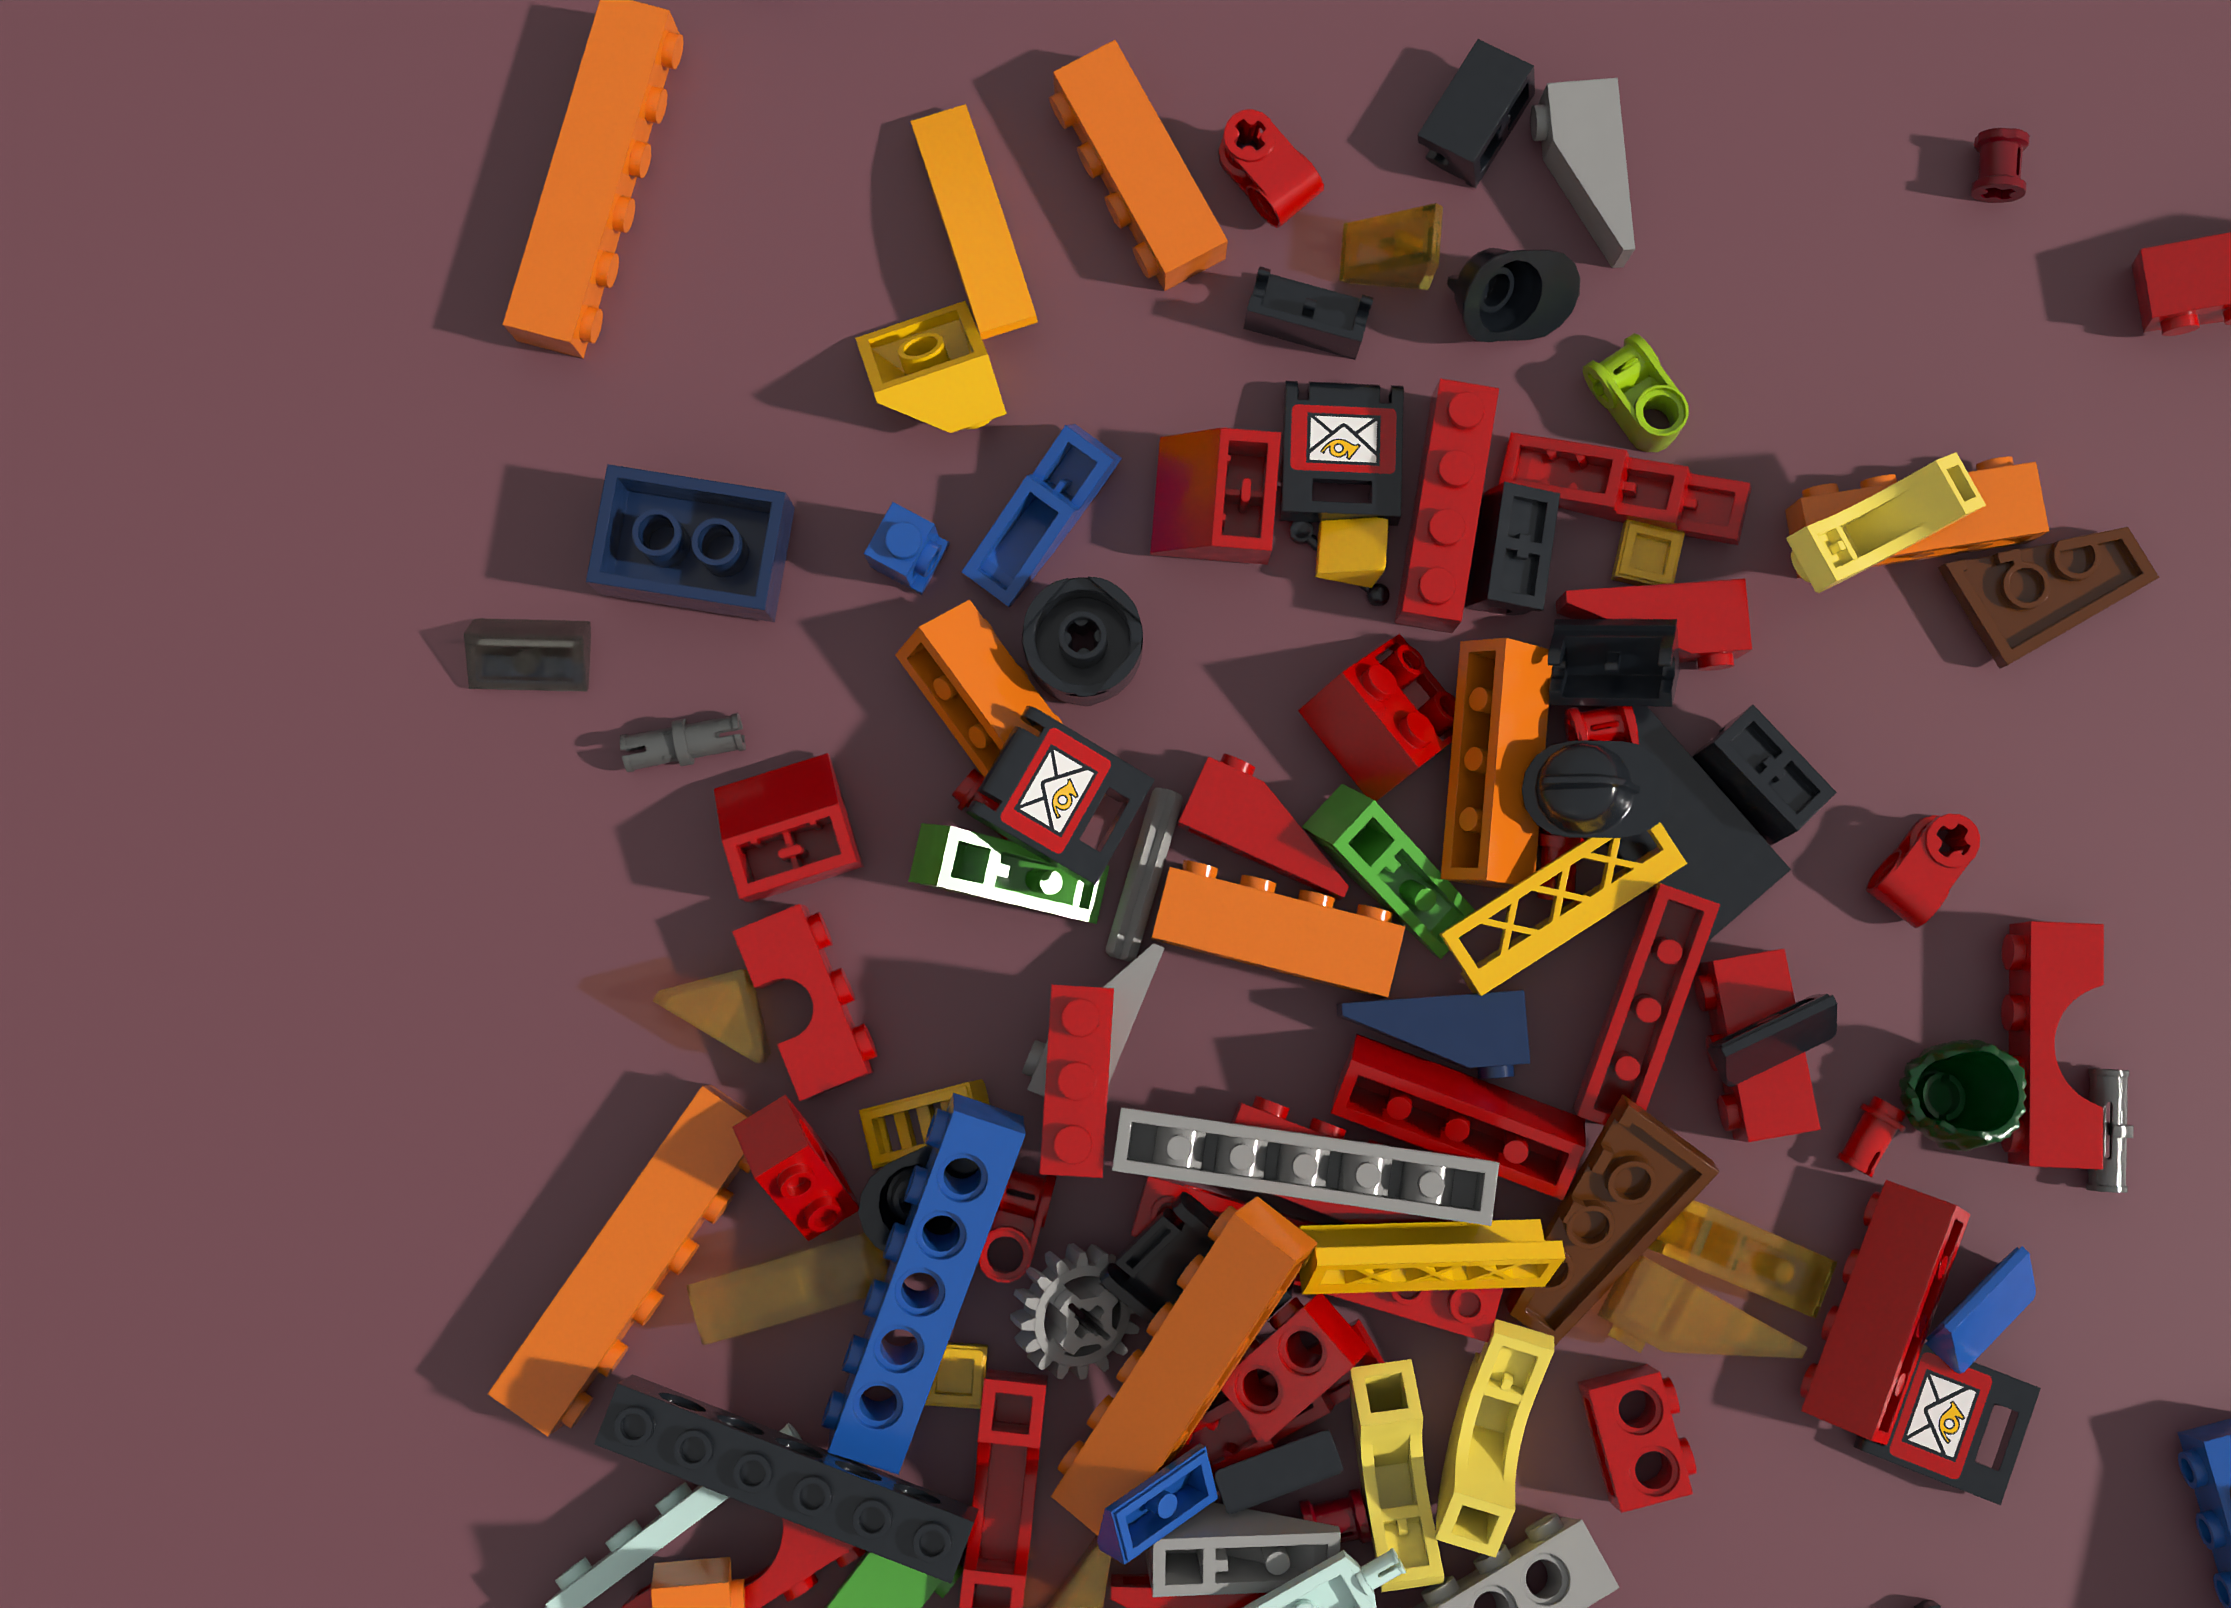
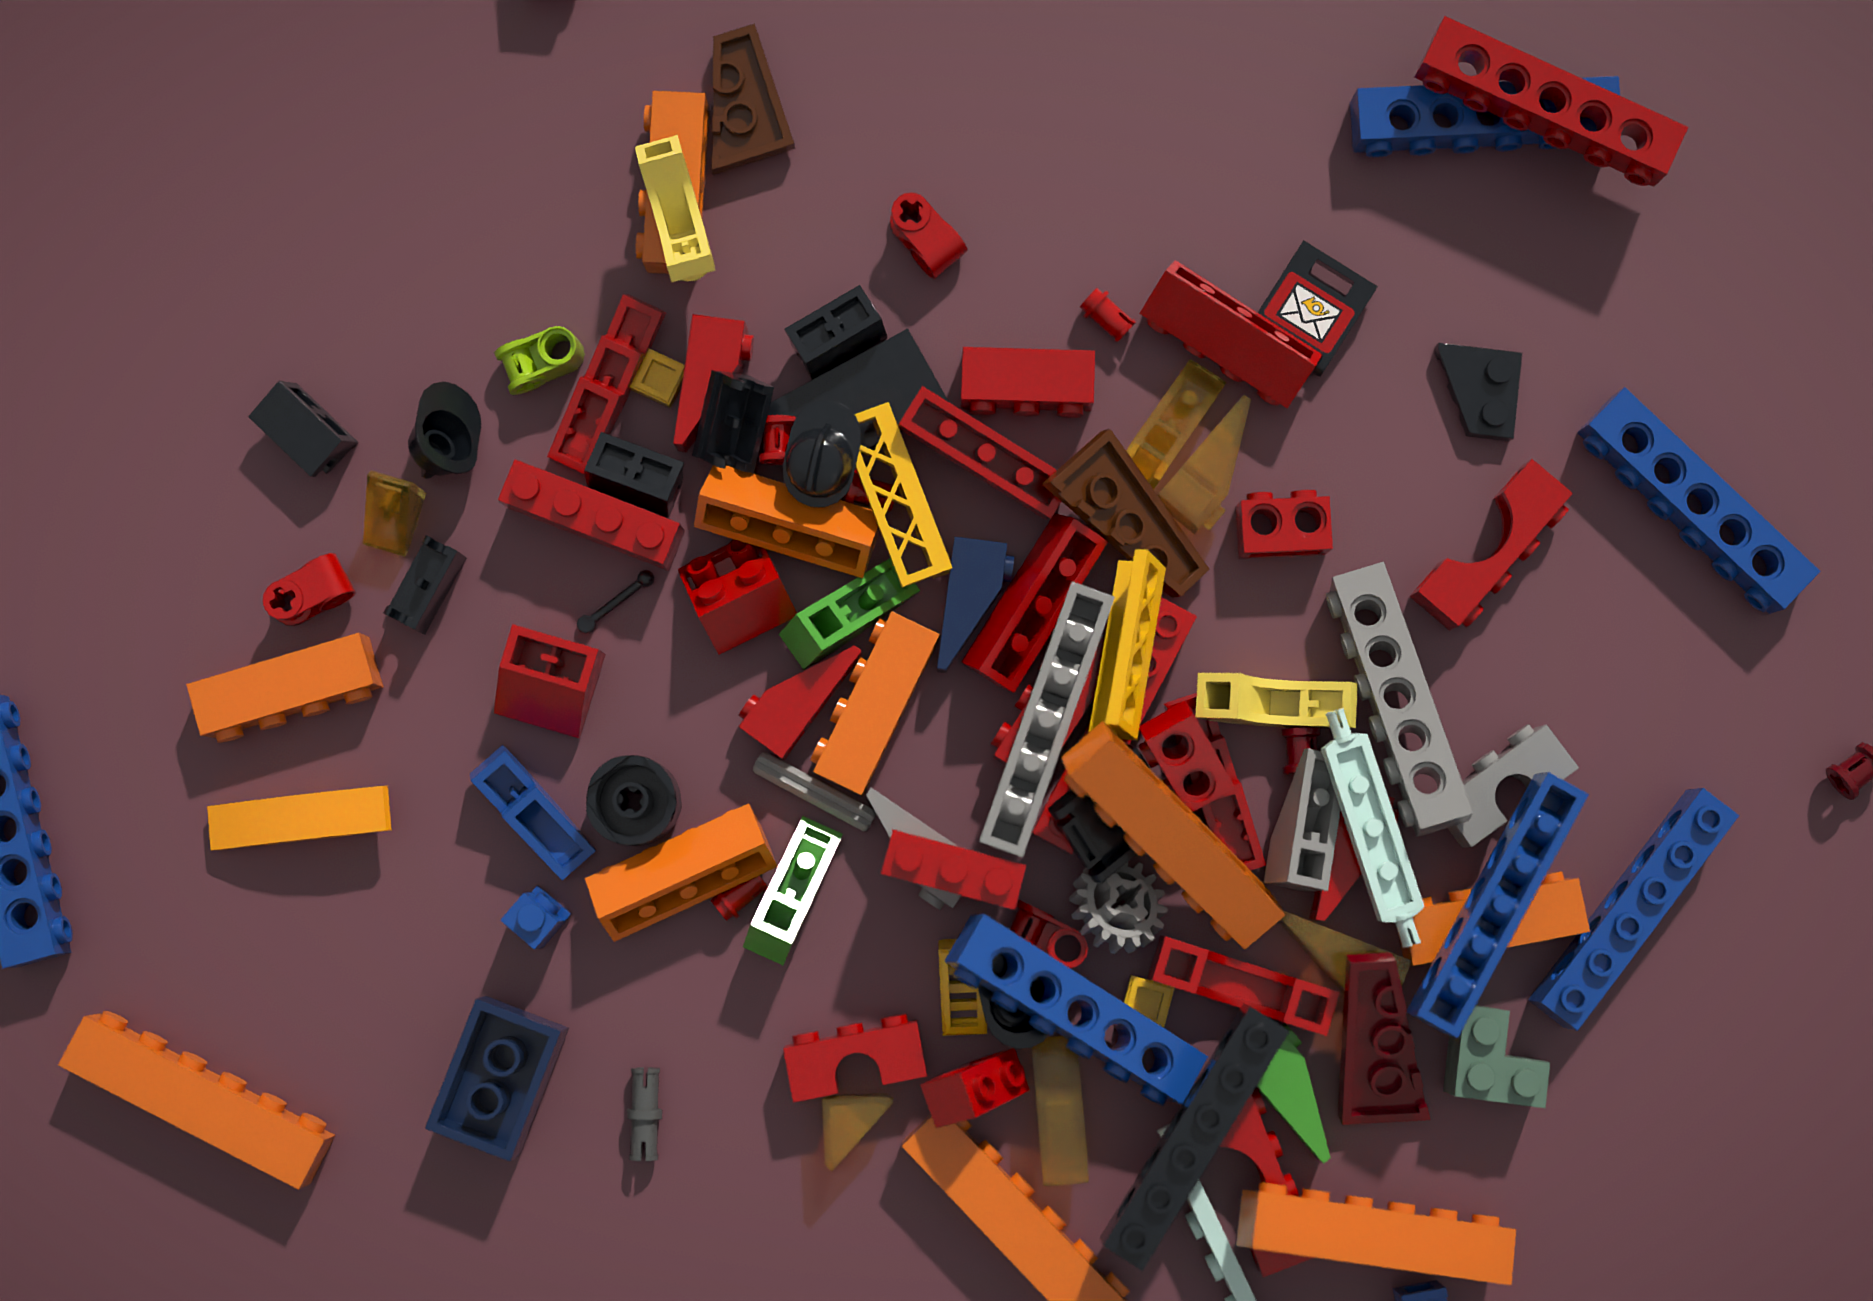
camera: 80 degrees left, 0 degrees up
(528, 654) = (552, 1218): clear smoke slope -> none
(786, 829) = (725, 1048): red slope -> none
(934, 370) = (405, 870): yellow slope -> none
(1051, 792) = (740, 845): container -> none
(1157, 1506) = (1264, 873): blue slope -> none
(1278, 1471) = (1258, 783): black slope -> none
(1342, 439) = (526, 578): container -> none
(1352, 550) = (609, 590): yellow slope -> none
(1486, 1438) = (1261, 630): light yellow arch -> none
(1587, 158) = (353, 356): light grey slope -> none
(1775, 1039) = (1025, 368): black slope -> none
(1964, 1094) = (1090, 245): dark green hair -> none
(1985, 1312) = (1244, 265): blue slope -> none
(2000, 165) = (429, 62): dark red bush -> none
(2047, 972) = (1016, 166): red arch -> none
(2111, 1087) = (1165, 158): dark grey pin -> none

